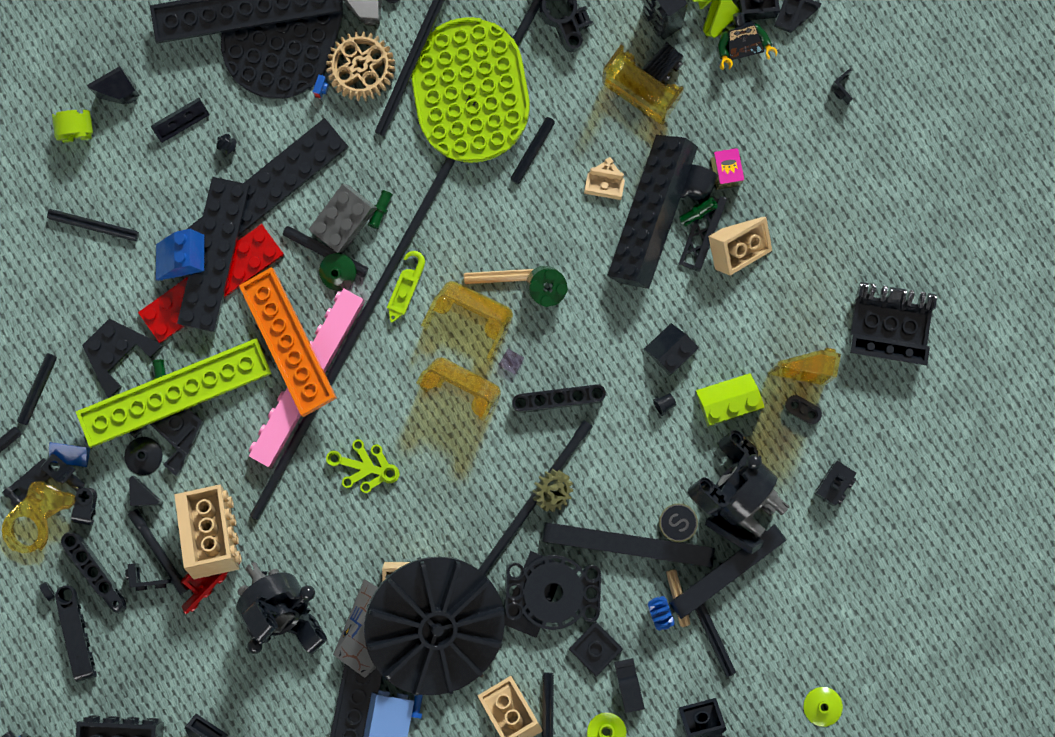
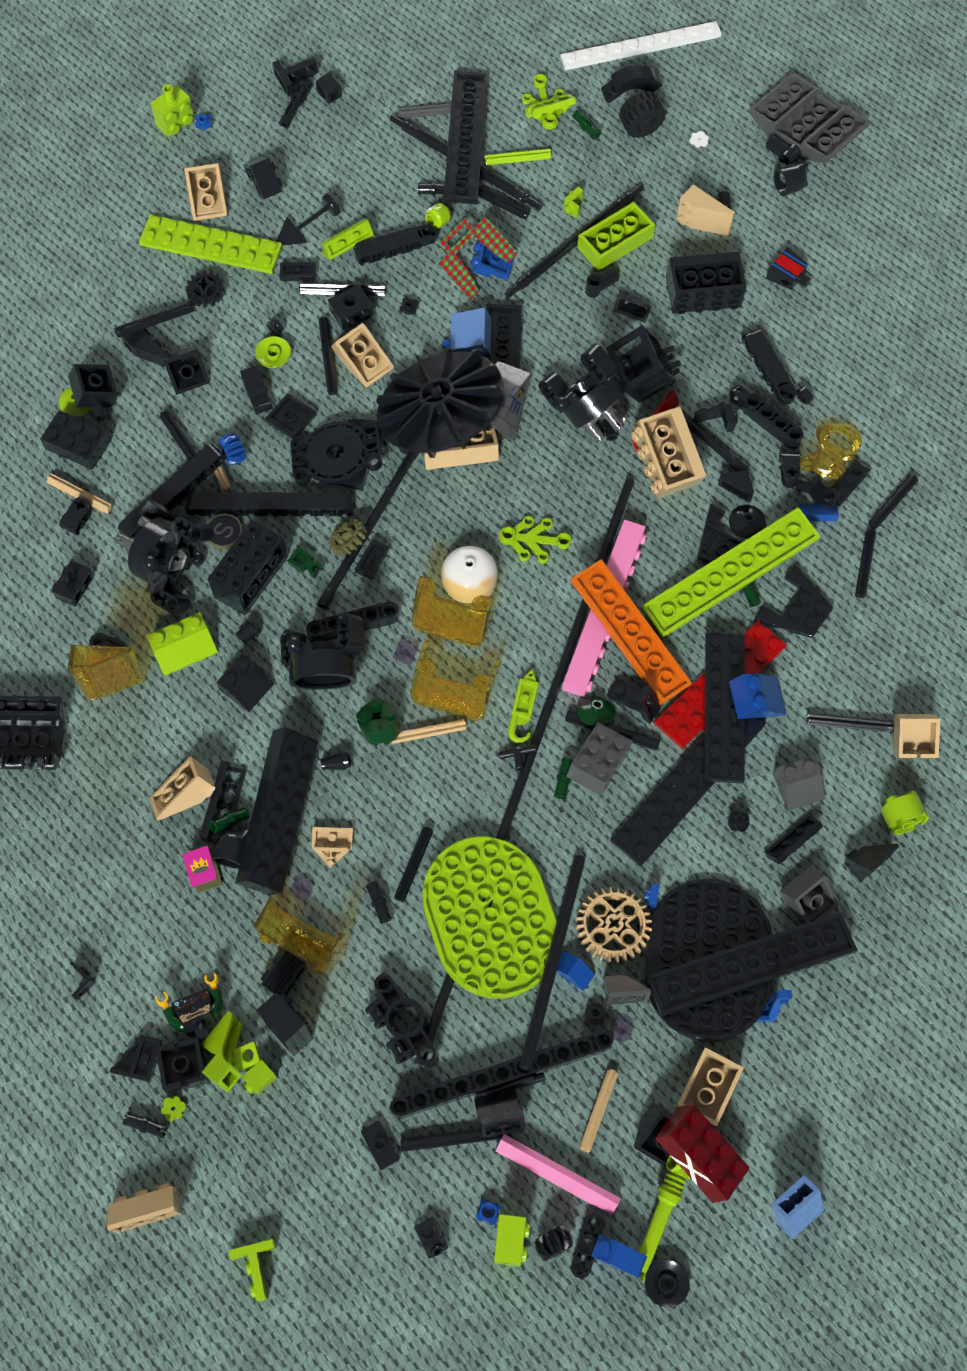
camera: 165 degrees right, 15 degrees down
(34, 200) = (916, 733): none -> tan piece
(160, 172) = (800, 783): none -> dark grey slope
(179, 66) = (809, 896): none -> dark grey slope
(211, 645) = (645, 367): none -> black piece
(299, 277) = (636, 699): none -> black bracket
(403, 32) = (574, 970): none -> blue slope
(419, 240) = (517, 753): none -> black piece
(435, 448) = (467, 581): none -> white cylinder
(531, 466) = (372, 559): none -> black plate
(569, 118) = (378, 902): none -> black pin
(591, 257) = (337, 761): none -> black cone
(595, 345) = (324, 663): none -> black piece
(601, 474) = (303, 561): none -> dark green plate
(637, 142) = (302, 889): none -> clear purple tile
(657, 466) = (248, 567): none -> black brick
(803, 709) = (93, 387): none -> black brick
(825, 589) = (76, 492): none -> tan axle
(825, 651) = (75, 439): none -> black brick
(830, 557) = (76, 517): none -> black piece

